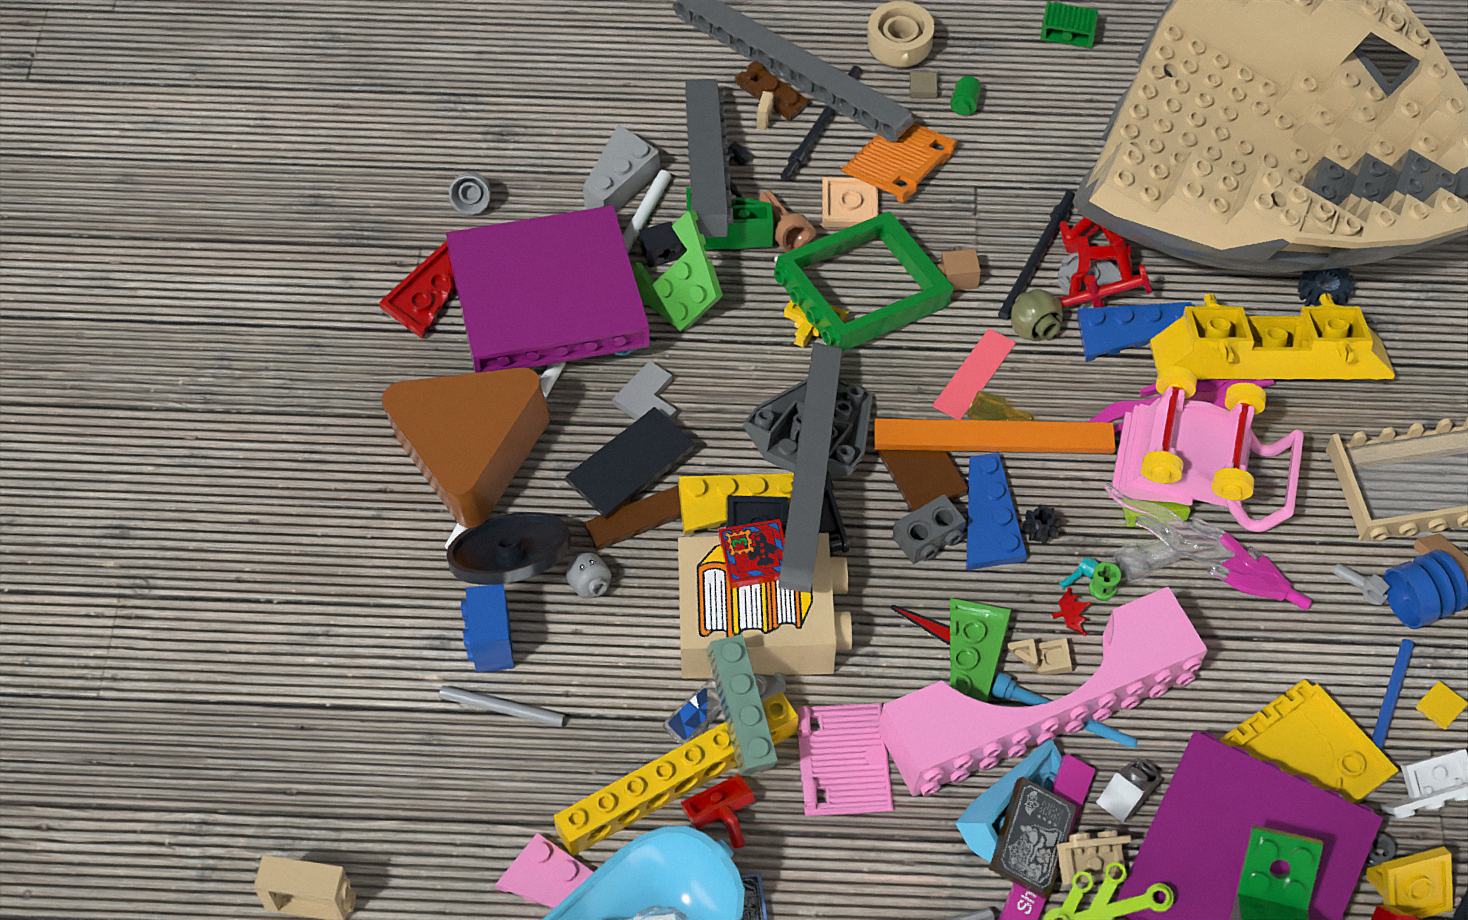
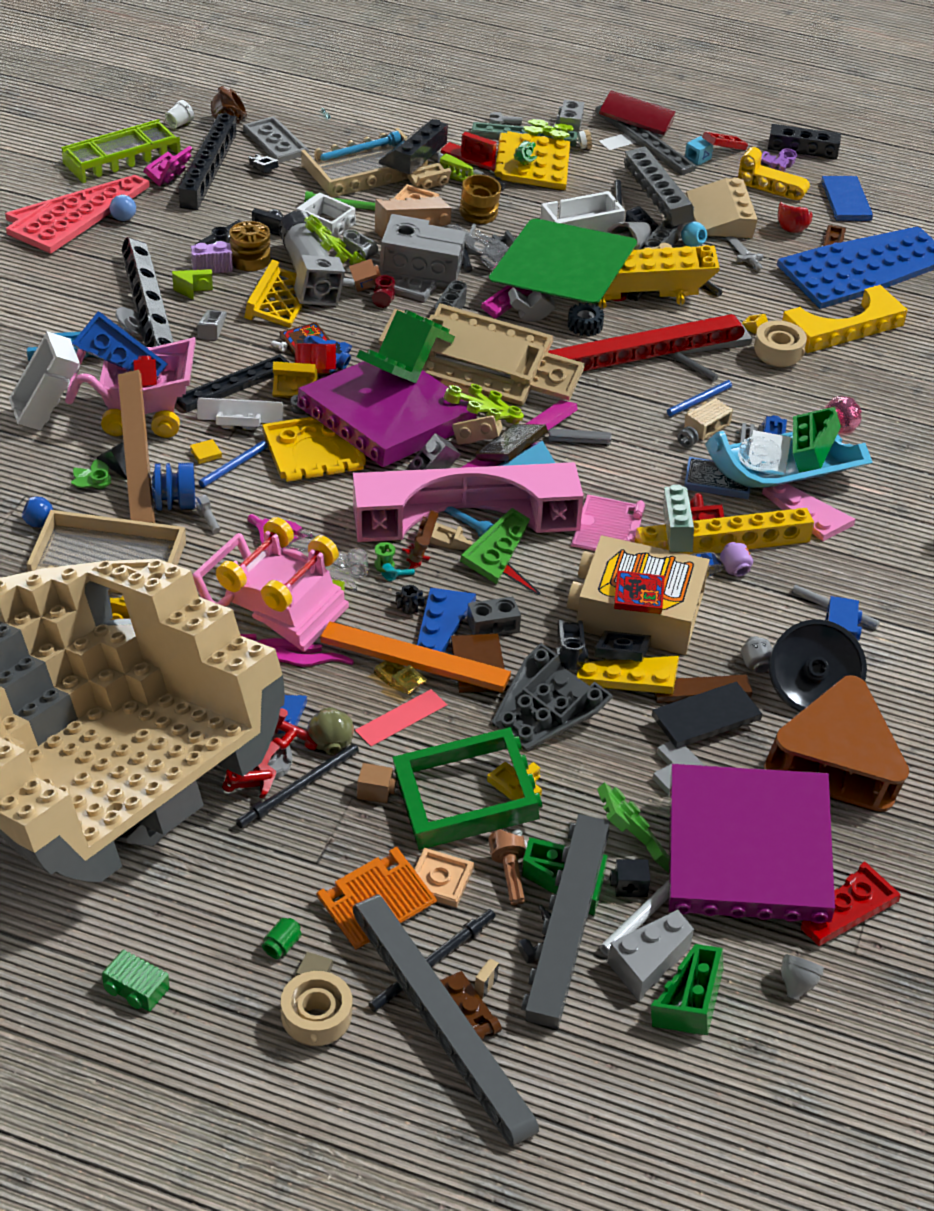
camera: 165 degrees left, 15 degrees down
(570, 140) = (692, 993): none -> green wedge
(650, 734) = (736, 559): none -> lavender head
(810, 470) = (573, 640): dark grey beam -> none
(1071, 622) = (423, 536): none -> reddish brown plate

